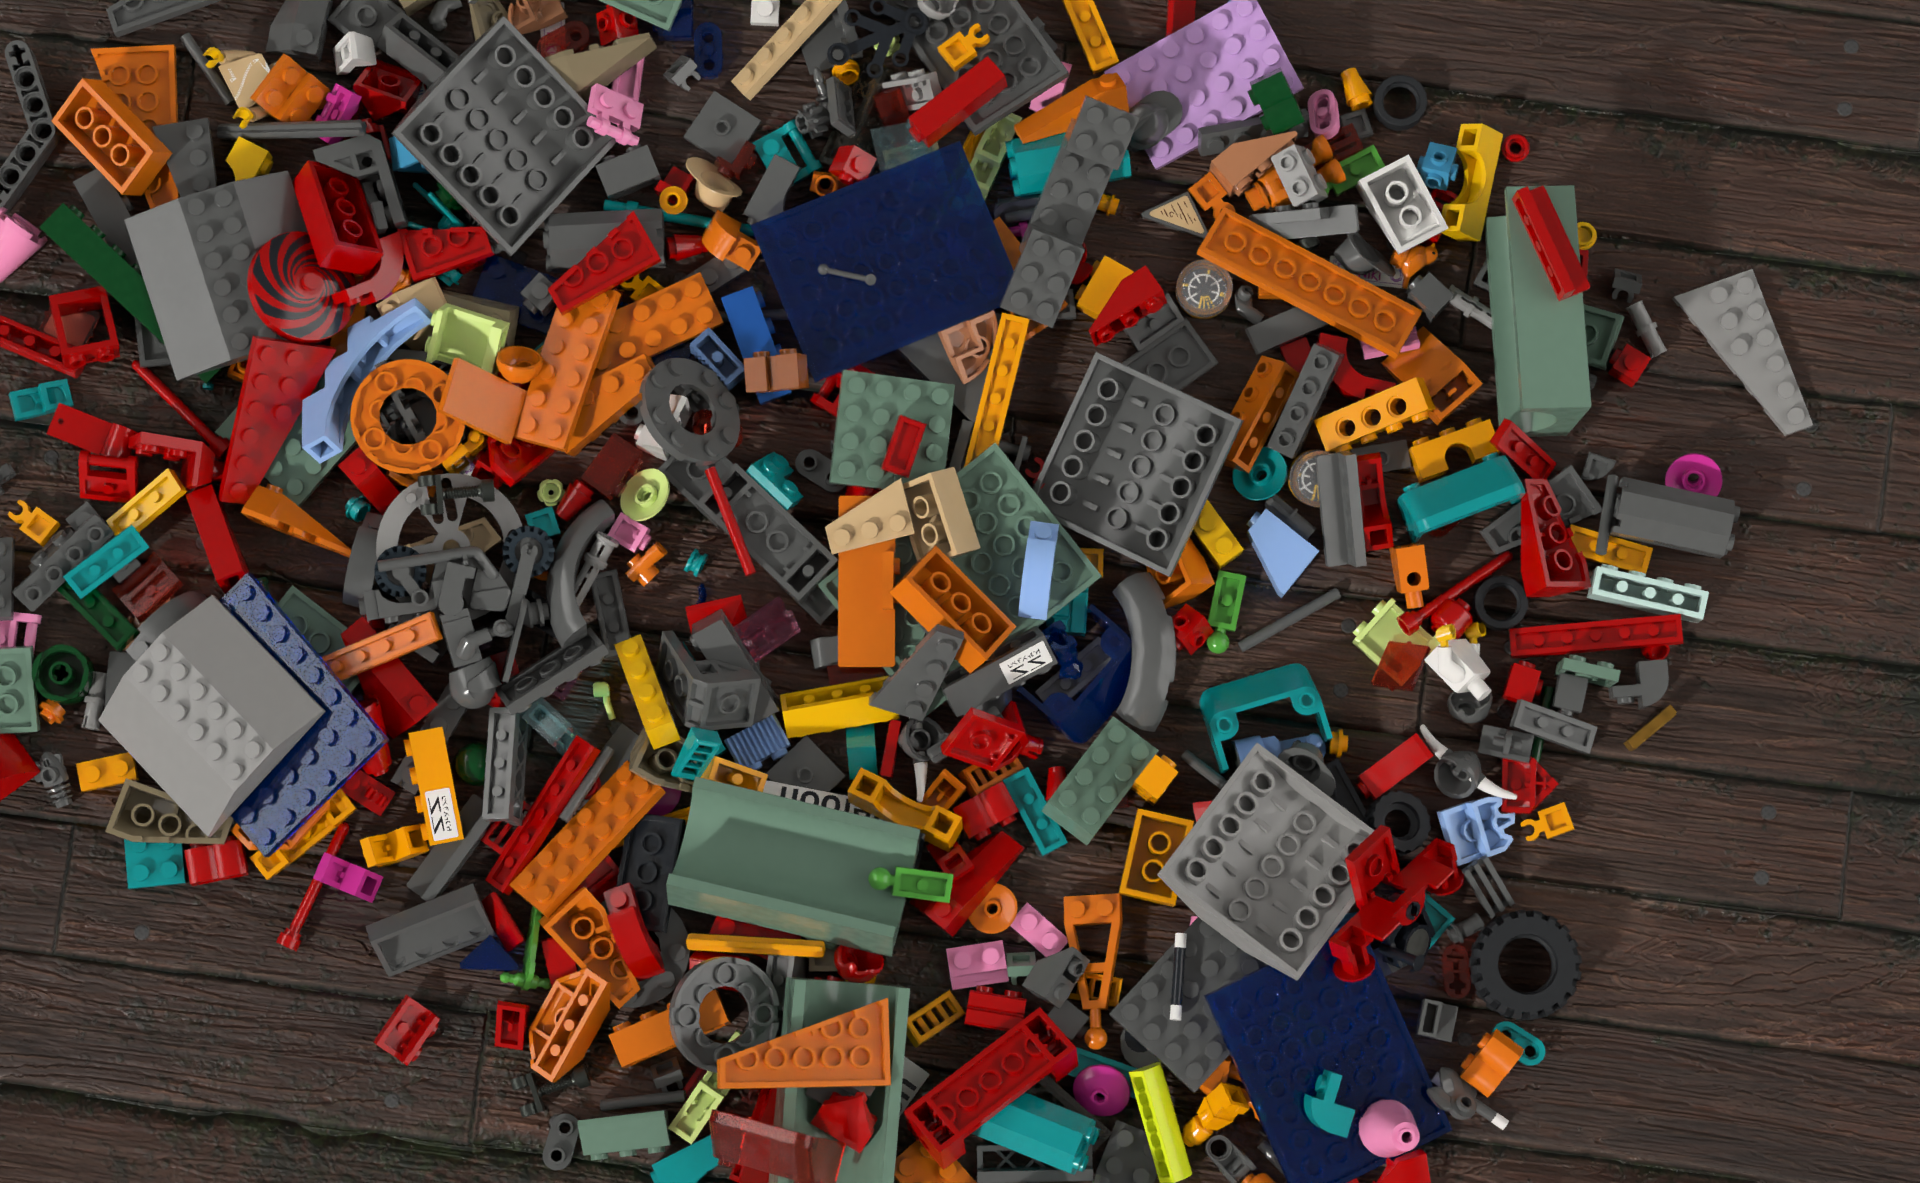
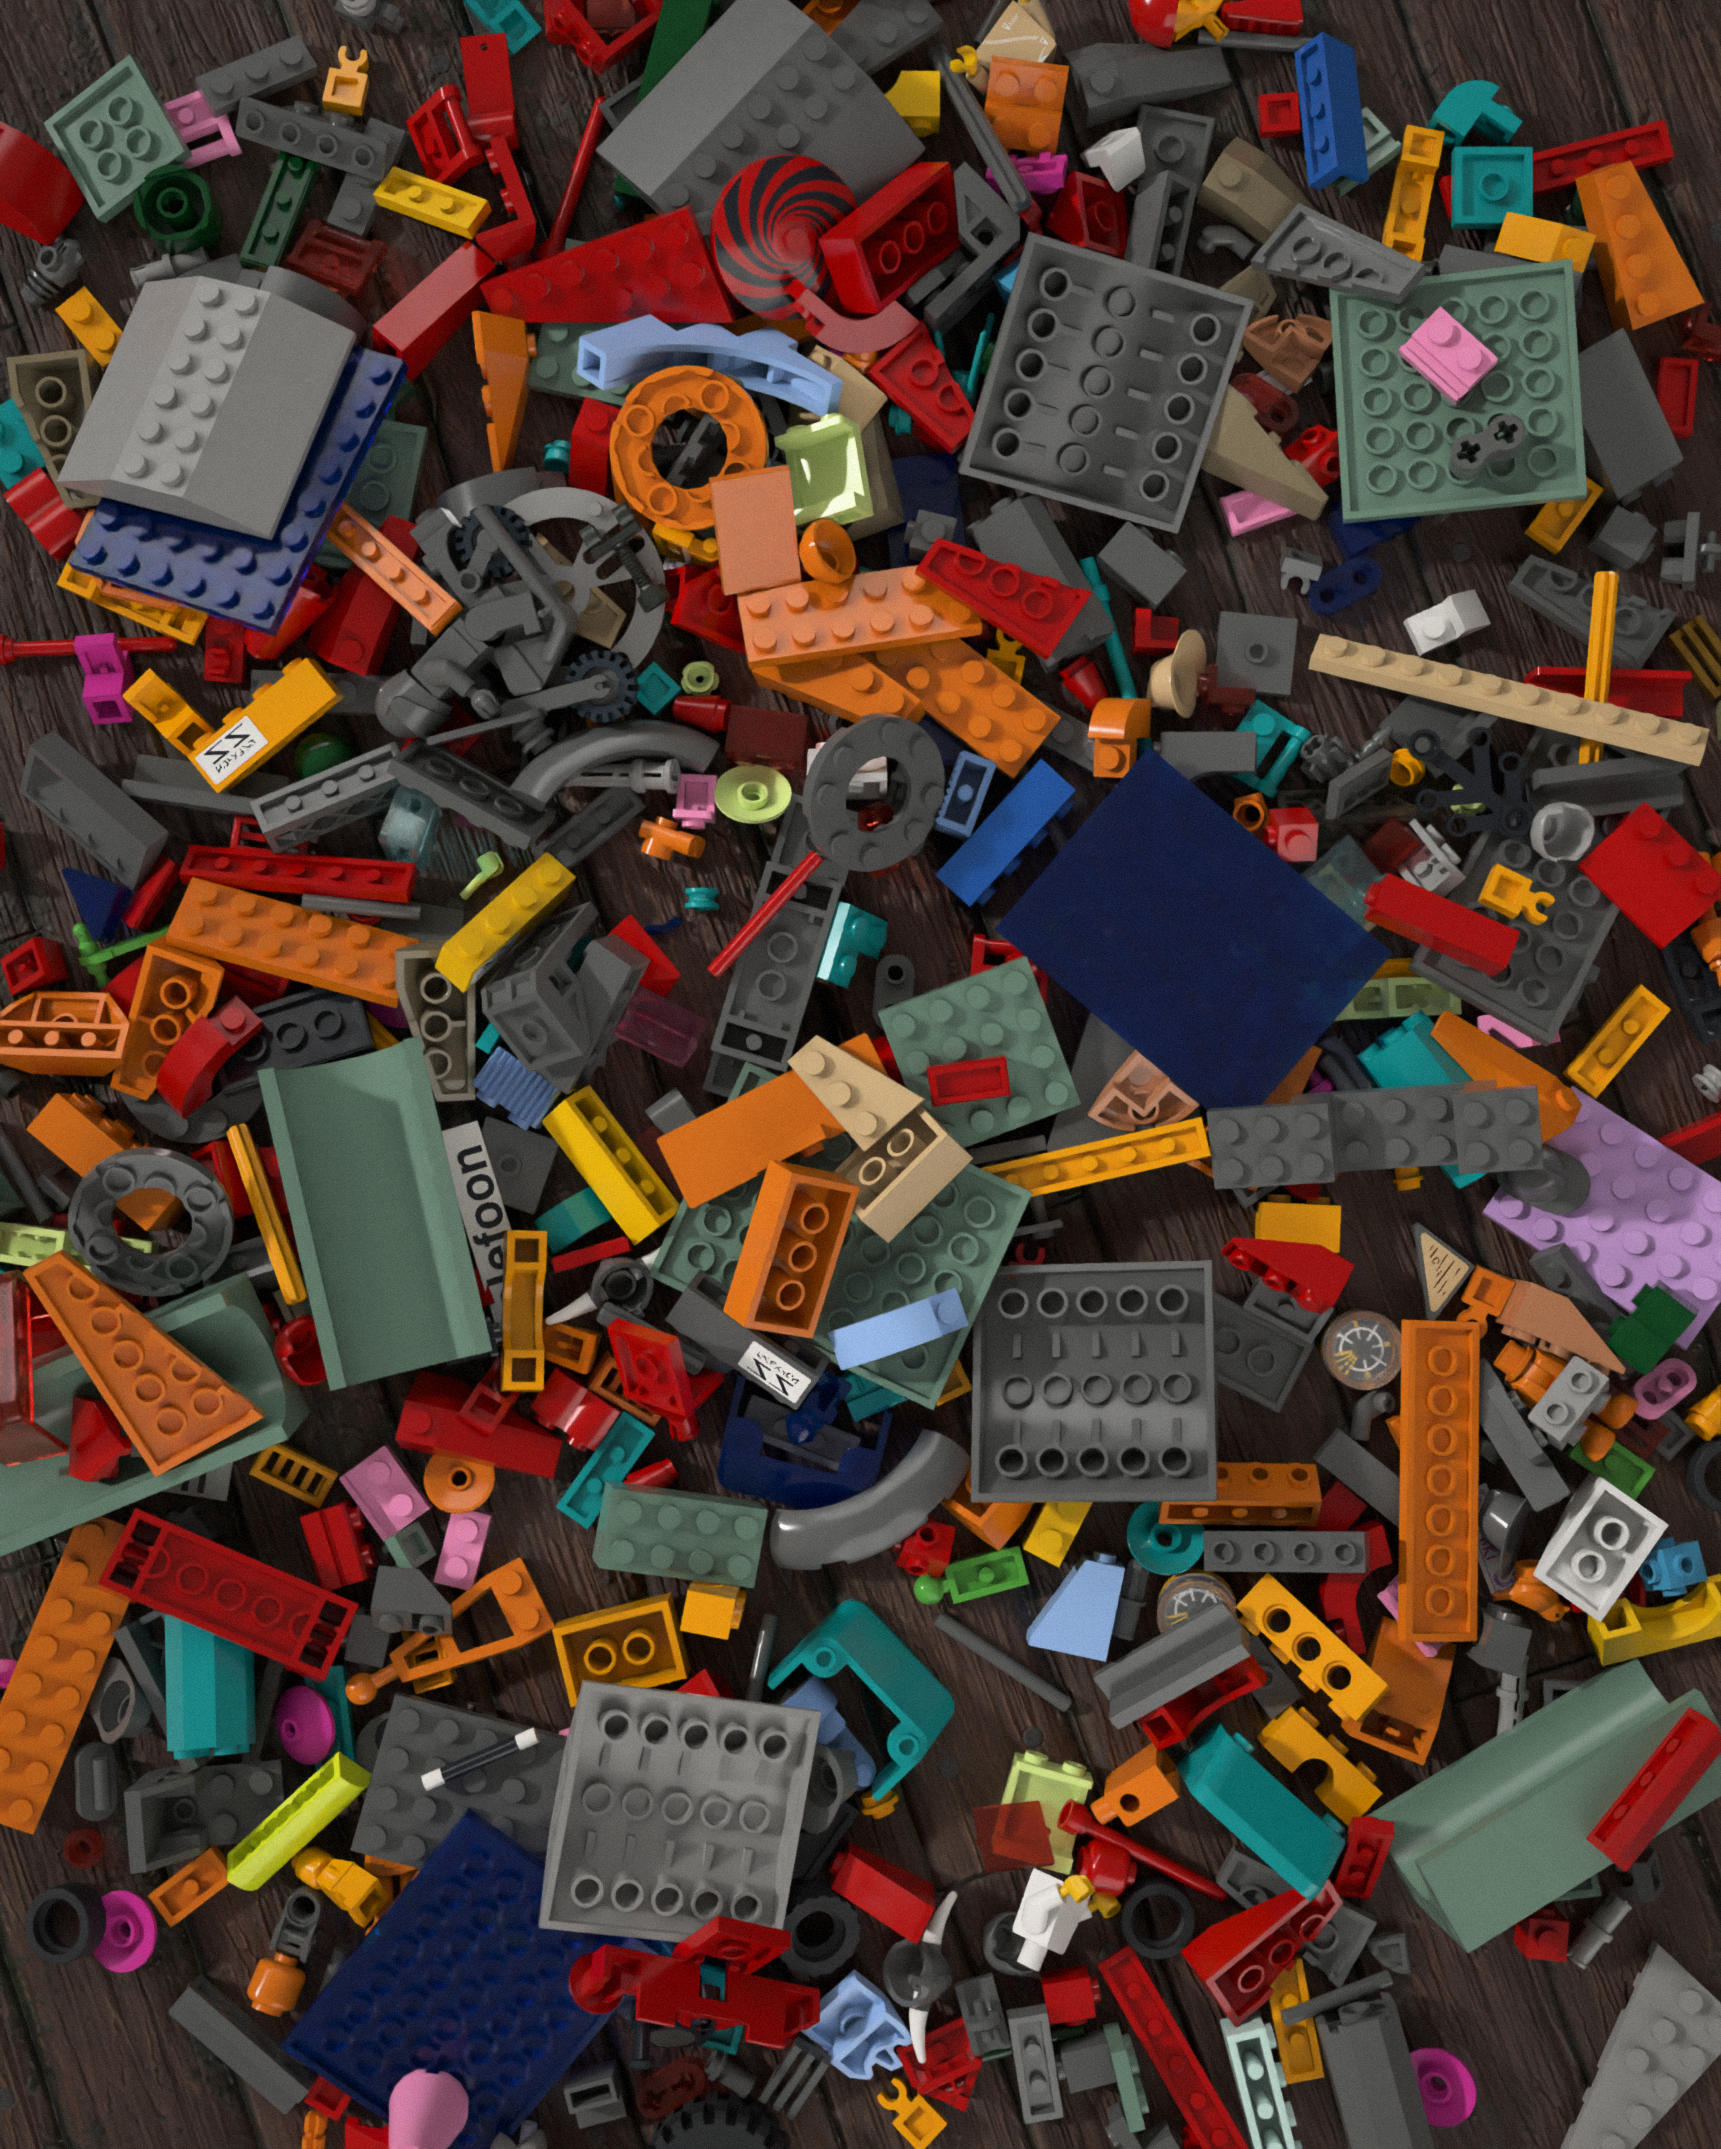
camera: 70 degrees right, 5 degrees up
(51, 711) = (129, 225): orange plate -> none
(106, 561) = (337, 187): teal plate -> none
(614, 108) = (1211, 509): bright pink plate -> none
(682, 200) = (1138, 648): light orange plate -> none
(696, 737) = (456, 1022): teal slope -> none
(734, 774) = (452, 1080): light orange slope -> none
(776, 372) = (980, 875): dark orange brick -> none
(870, 279) = (1157, 930): dark grey hinge -> none
(913, 883) = (427, 1374): bright green plate -> none
(920, 675) = (688, 1252): dark grey wing -> none
(1322, 1109) = (406, 2030): teal brick -> none

